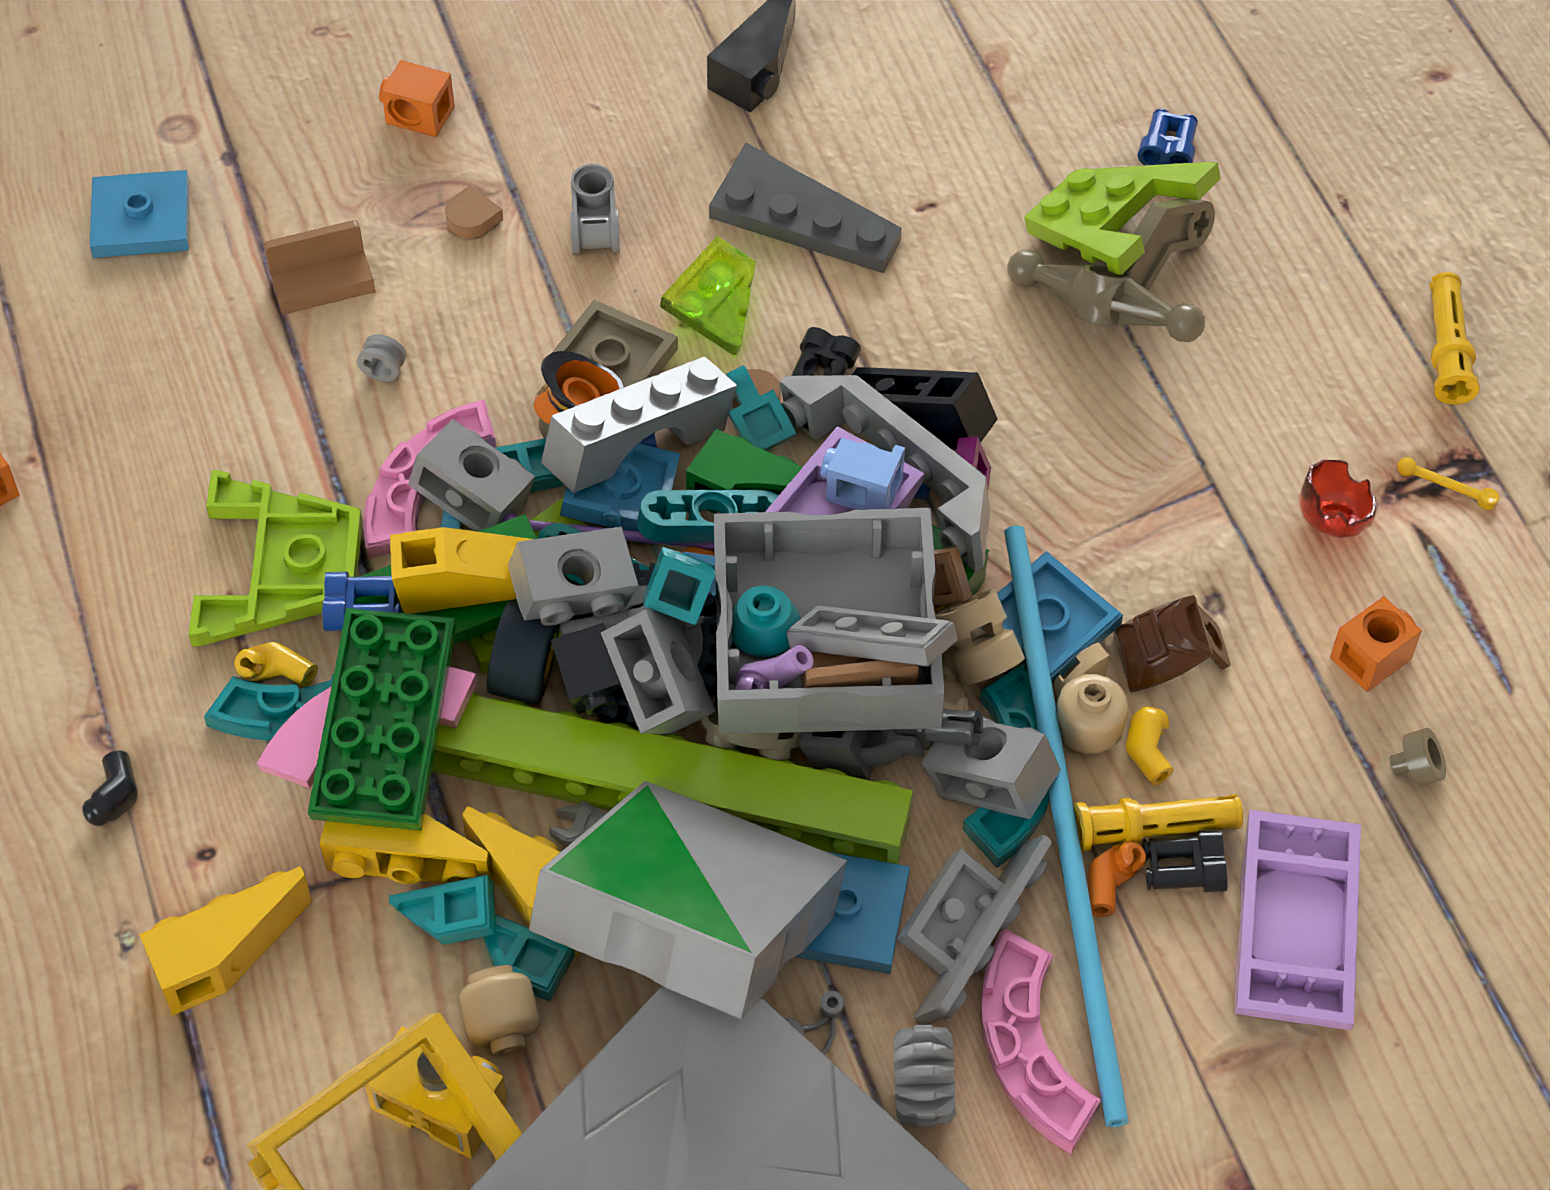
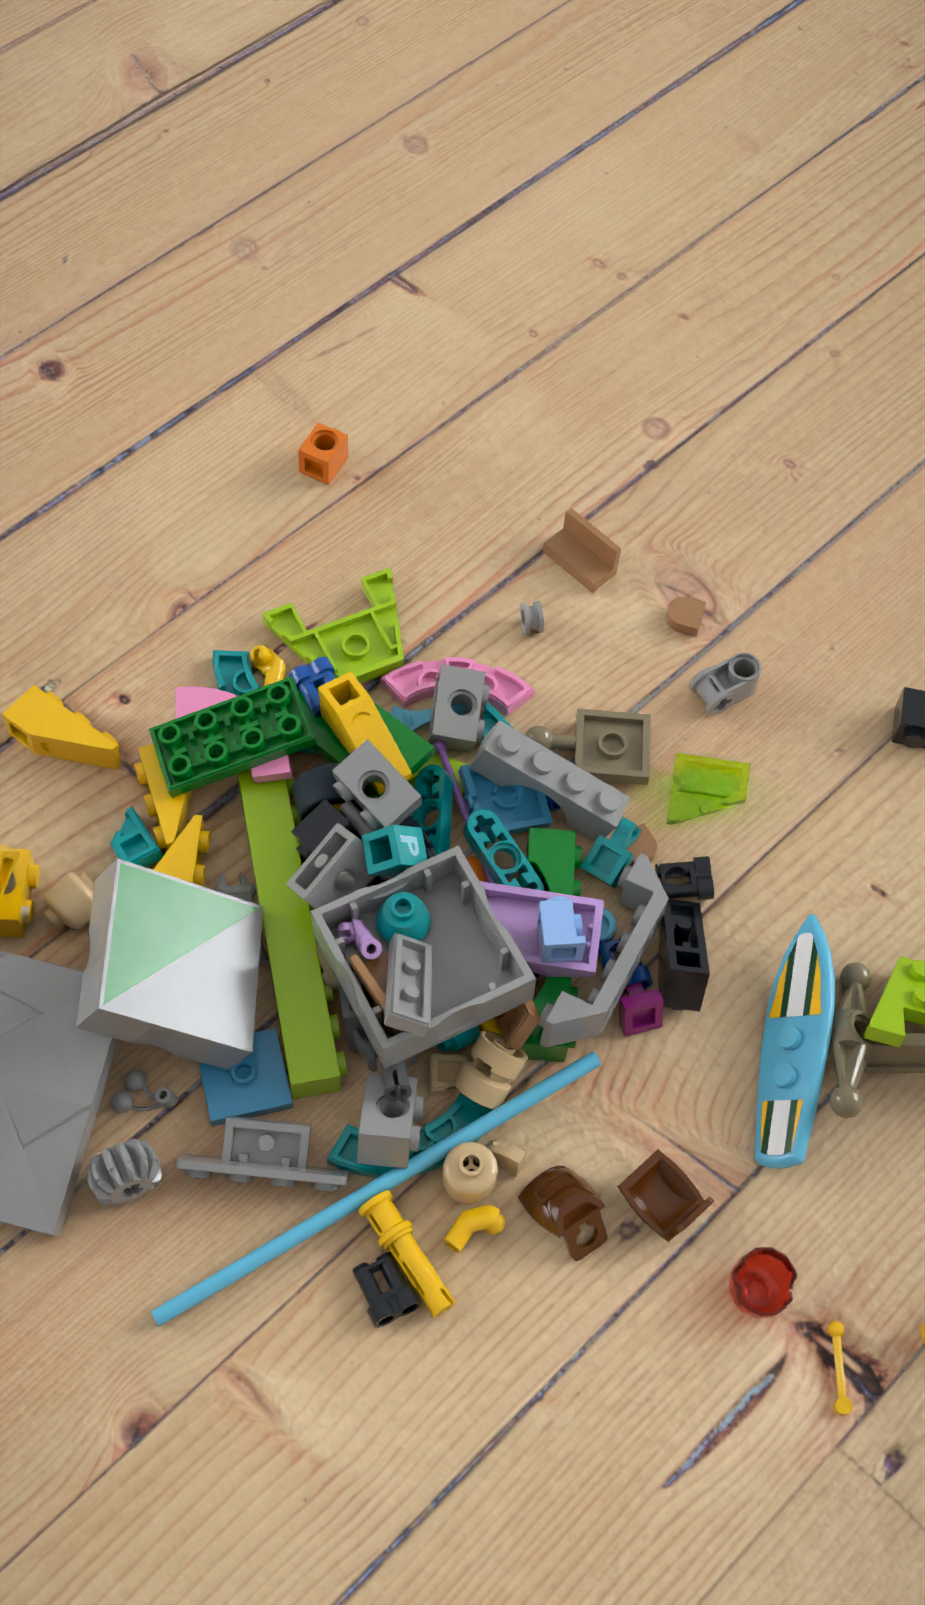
camera: 60 degrees right, 5 degrees up
(115, 794) = (139, 632): black arm -> none
(139, 214) = (572, 440): dark azure plate -> none
(417, 98) = (759, 539): orange brick -> none
(571, 382) = (557, 728): orange piece -> none
(796, 209) = (817, 805): dark grey wing -> none
(1017, 1046) = (188, 1230): bright pink tile -> none
(1069, 614) = (552, 1125): dark azure plate -> none
(1085, 352) = (795, 1048): none -> medium azure piece
(1110, 872) = (351, 1238): orange arm -> none
(1207, 542) = (663, 1196): none -> reddish brown piece
(1298, 920) = (367, 1386): lavender slope -> none
(1364, 657) = (627, 1369): orange brick -> none
(1420, 757) = (556, 1431): dark tan tile -> none

